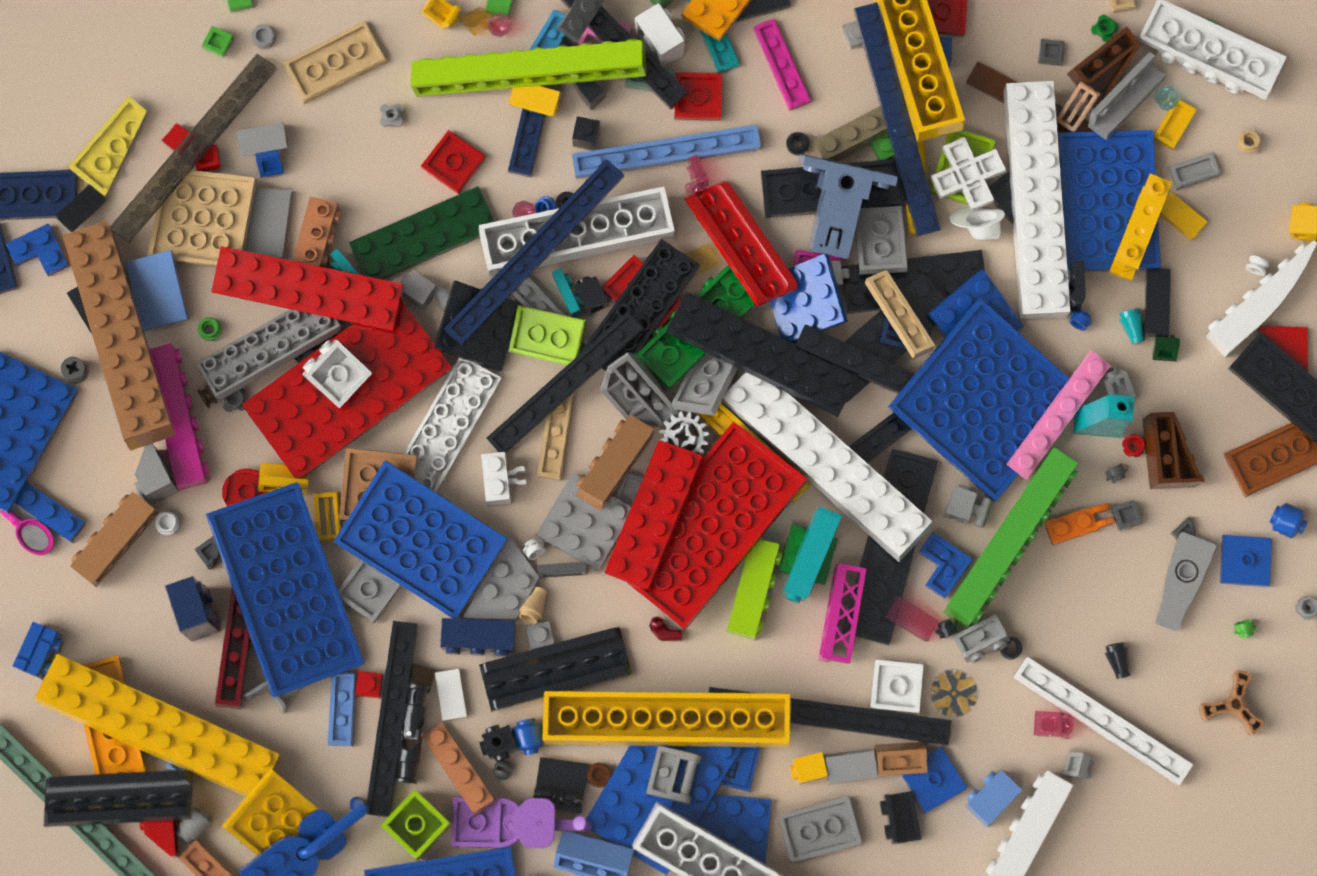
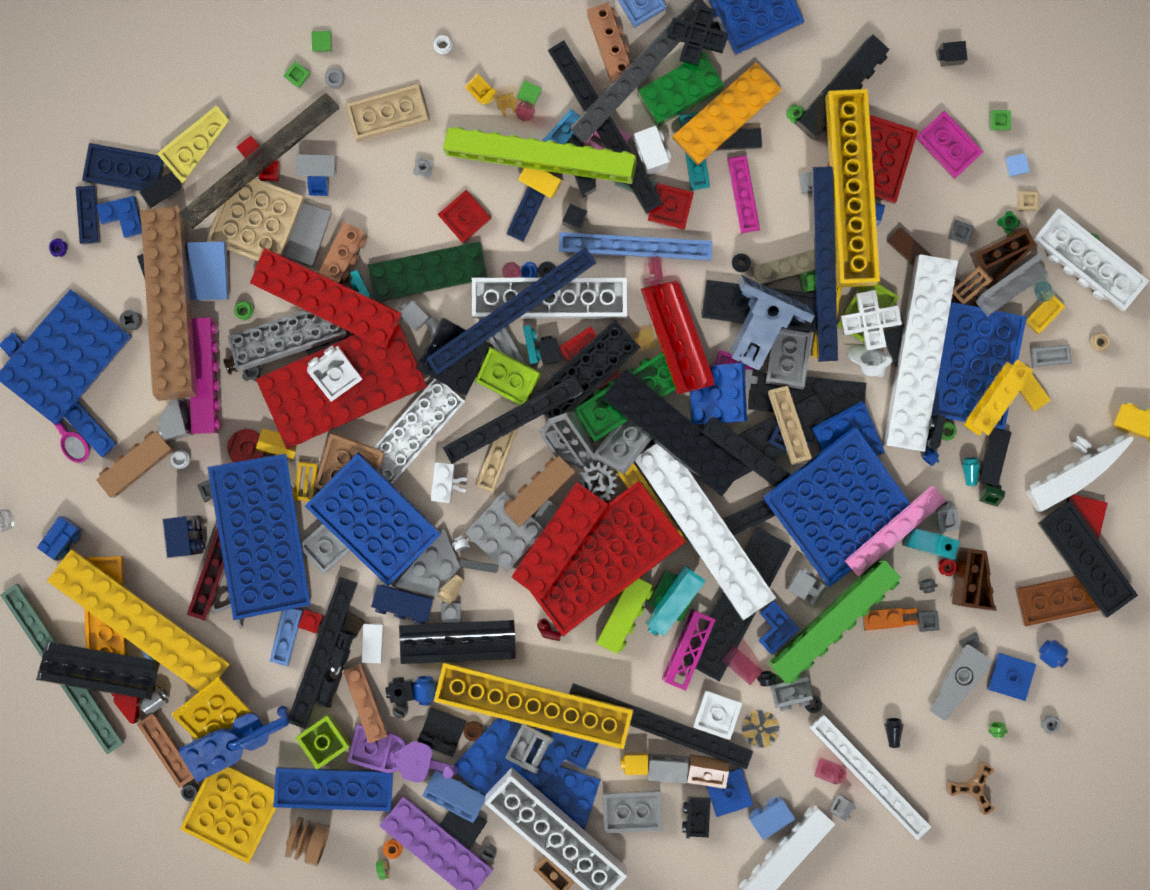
camera: 10 degrees right, 10 degrees up
(1097, 280) = (952, 431): none -> bright green plate

